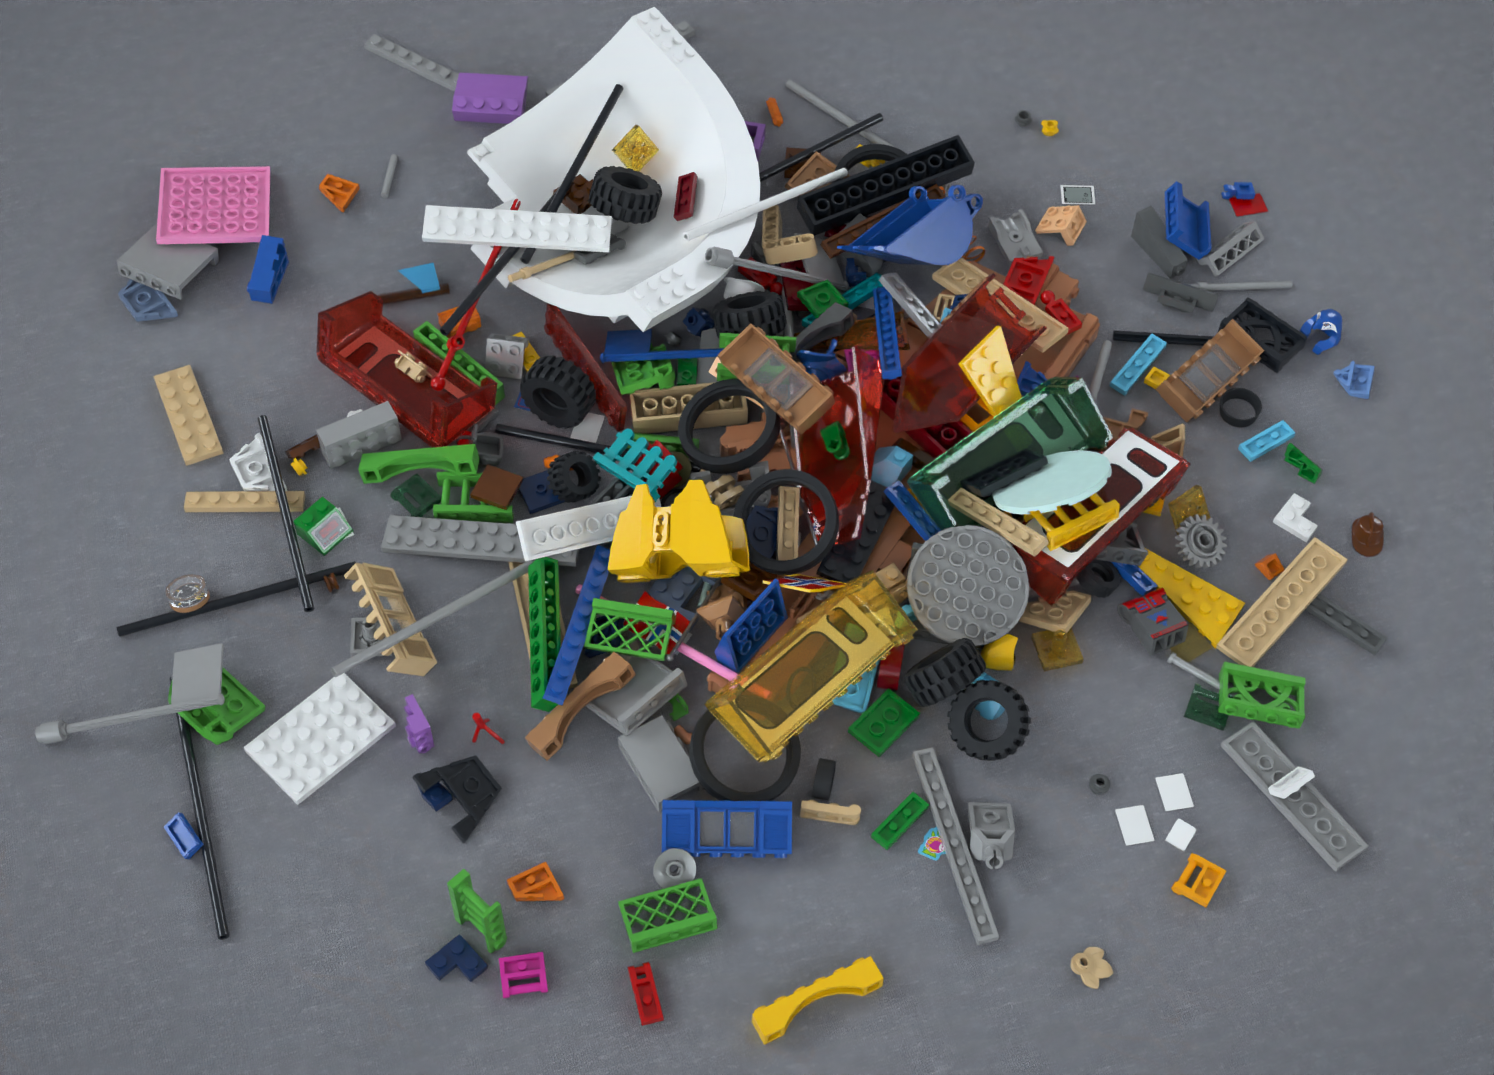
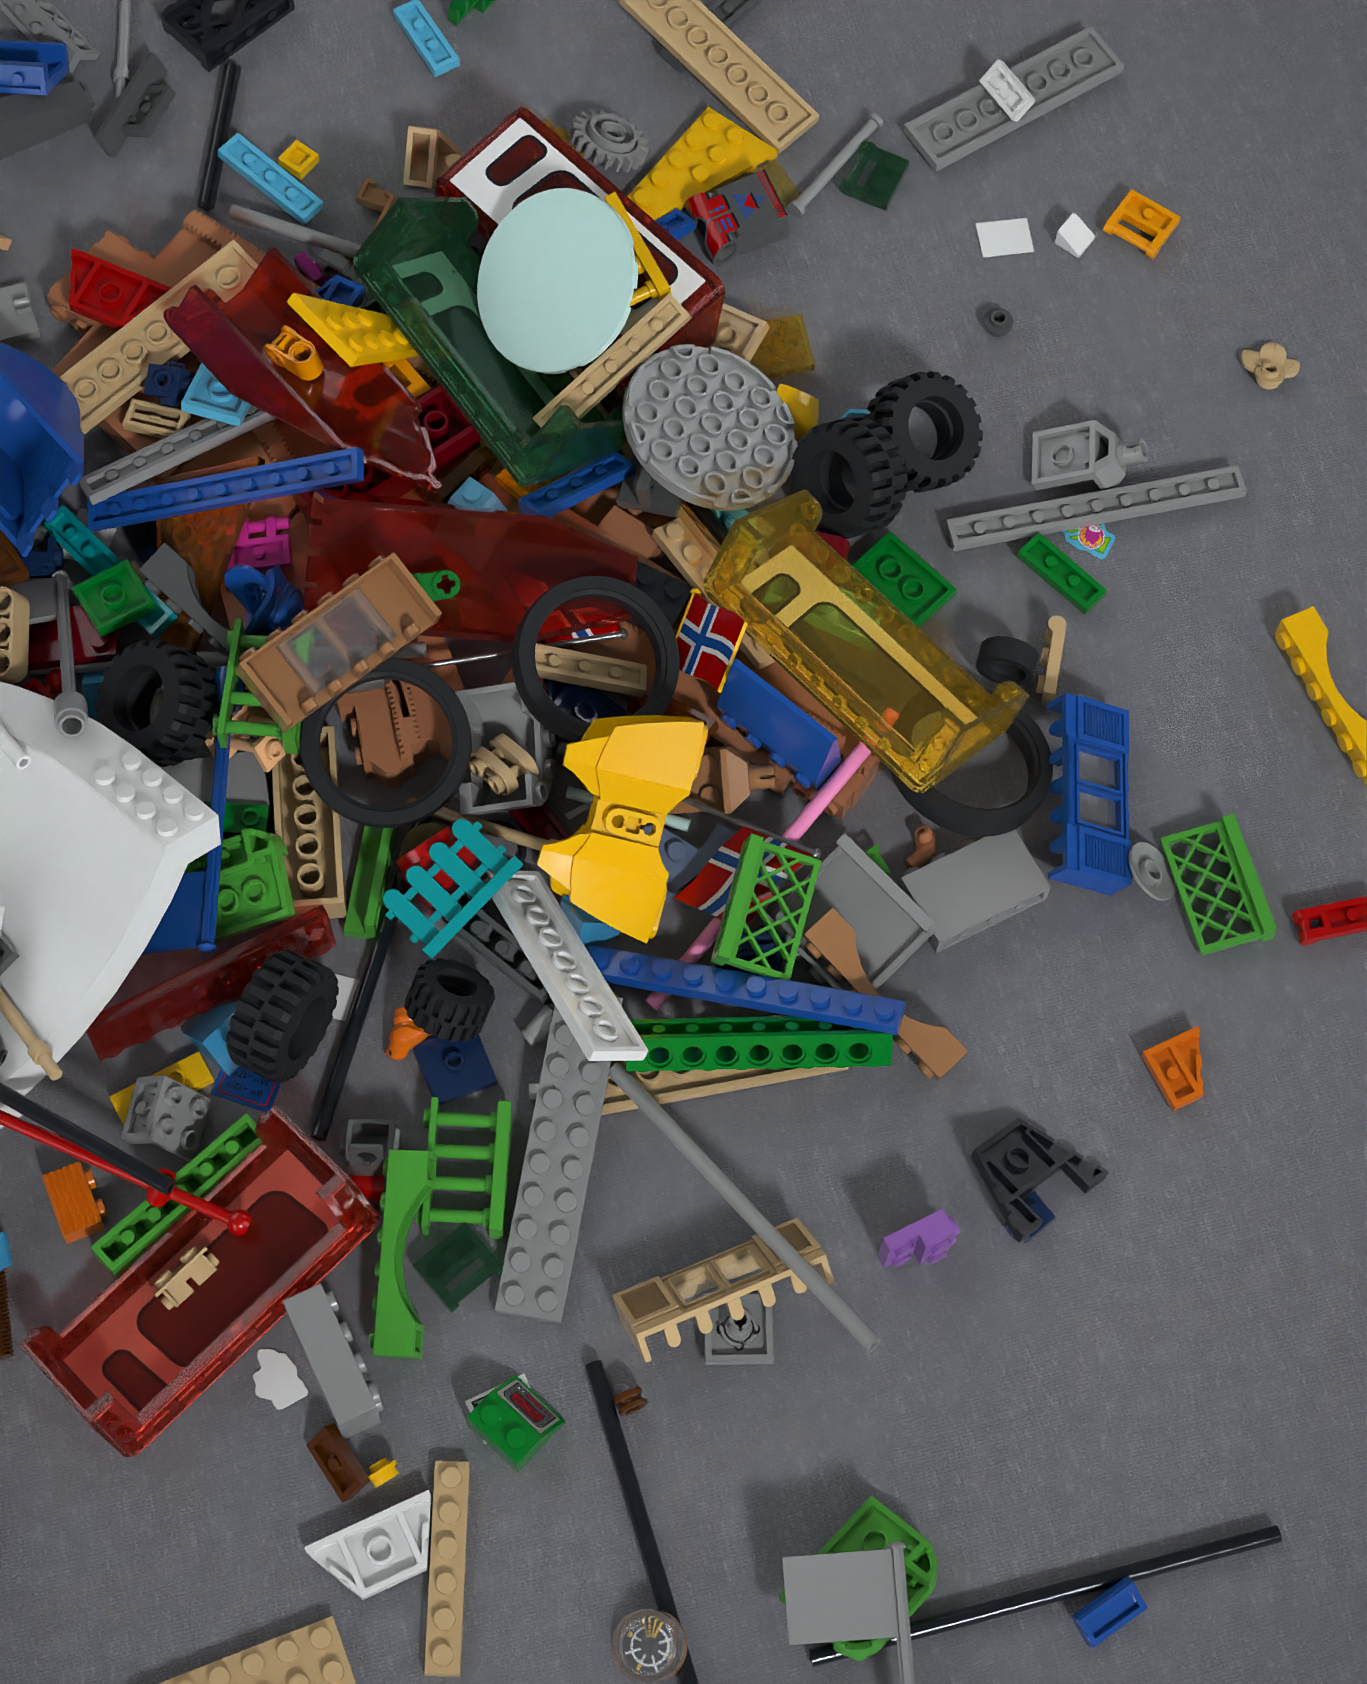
camera: 90 degrees left, 10 degrees up
(285, 514) = (484, 1485): black piece -> none
(319, 737) = (924, 1408): white plate -> none
(456, 954) = (1290, 1182): dark blue plate -> none
(471, 907) = (1246, 1136): bright green fence -> none
(481, 724) = (918, 1143): red plant -> none
(497, 487) = (464, 1122): reddish brown tile -> none
(520, 968) = (1311, 1088): dark pink plate -> none
(1004, 472) = (517, 352): black plate -> none
(1060, 311) = (184, 254): red plate -> none
(1134, 825) = (1055, 291): white sticker -> none
(1210, 371) = (297, 84): medium nougat window -> none
(1244, 394) = (359, 39): black tyre -> none
(1270, 566) = (642, 70): orange slope -> none
(1276, 685) = (851, 74): bright green fence -> none
(1292, 518) = (565, 31): white plate -> none

